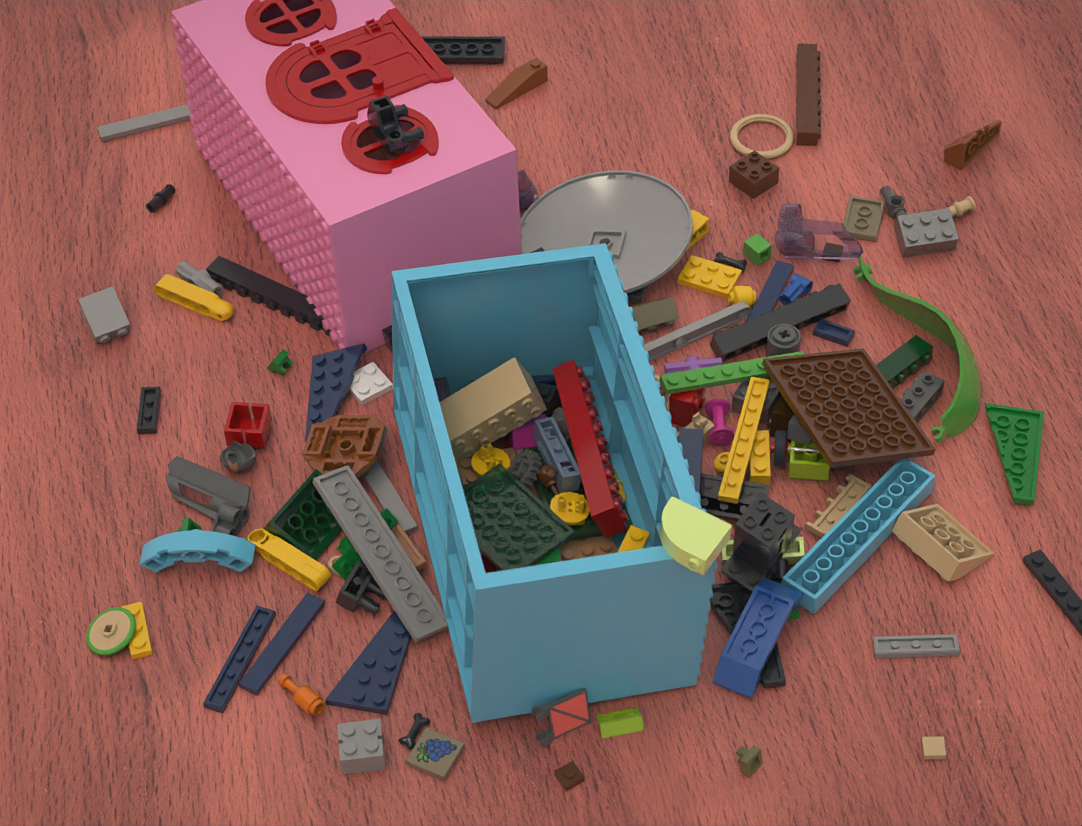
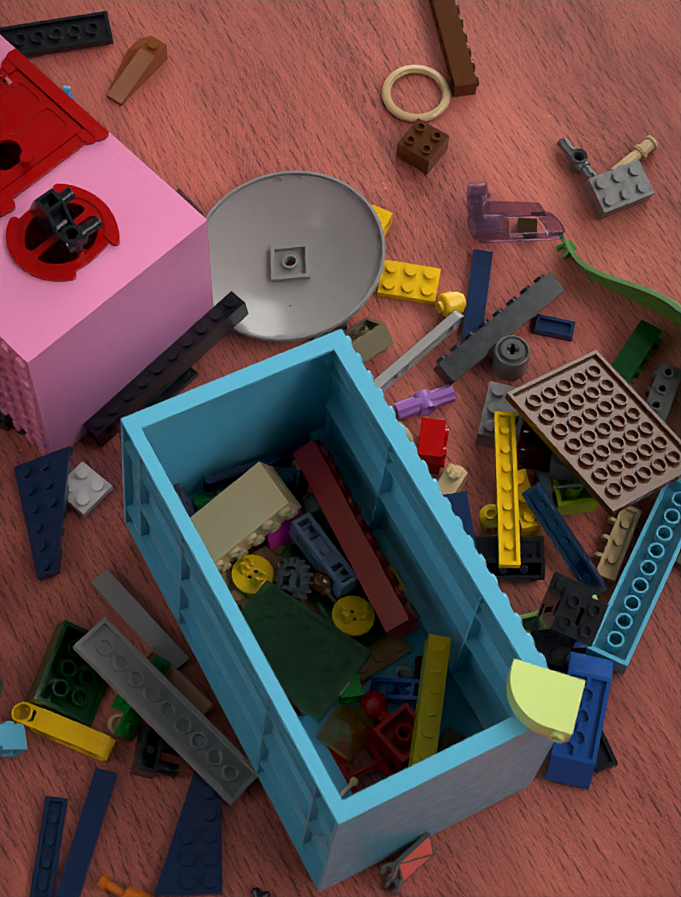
camera: 20 degrees left, 15 degrees up
(343, 442) = (73, 568): dark orange piece -> none
(620, 722) = (464, 848): lime slope -> none
(716, 375) = (467, 413): bright green plate -> none
(717, 410) = (475, 479): dark pink hose -> none
(739, 264) = (415, 257): black piece -> none
(749, 759) = (606, 864): olive tile -> none
(757, 249) = (450, 240): bright green brick -> none
(787, 488) = (564, 538): none -> dark blue tile
(797, 287) = (504, 280): blue piece -> none
(863, 218) = (547, 179): dark tan tile -> none
(967, 147) = (630, 72): dark orange wedge -> none

